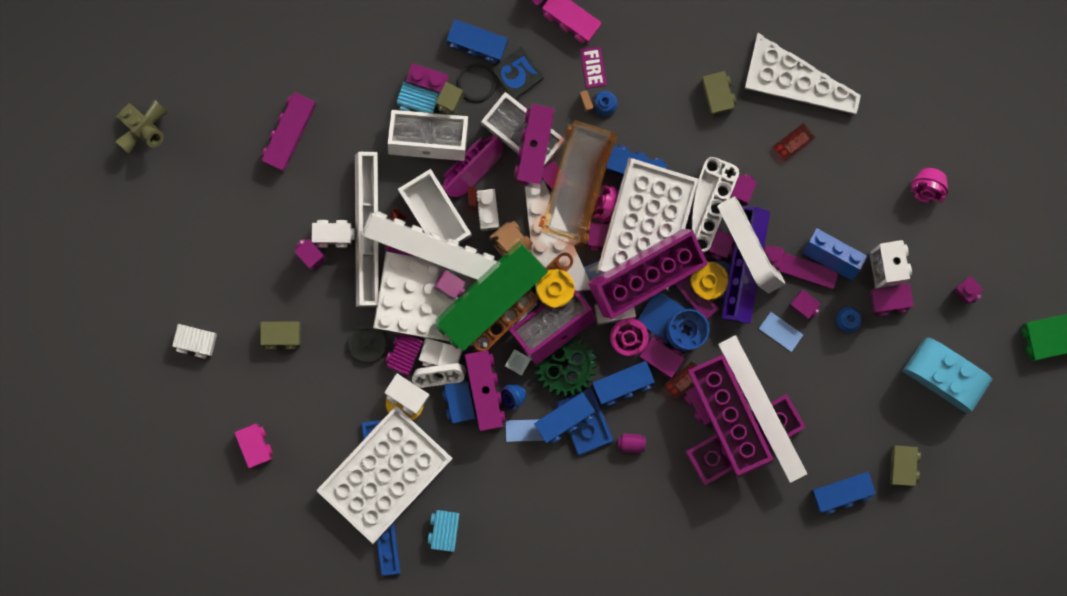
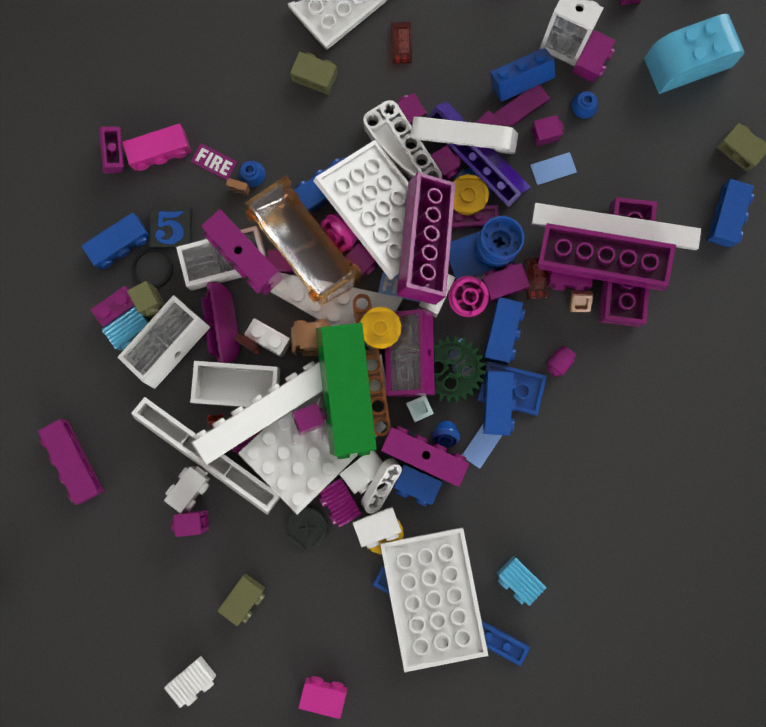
camera: 50 degrees left, 0 degrees up
(690, 426) = (581, 301): none -> medium nougat tile

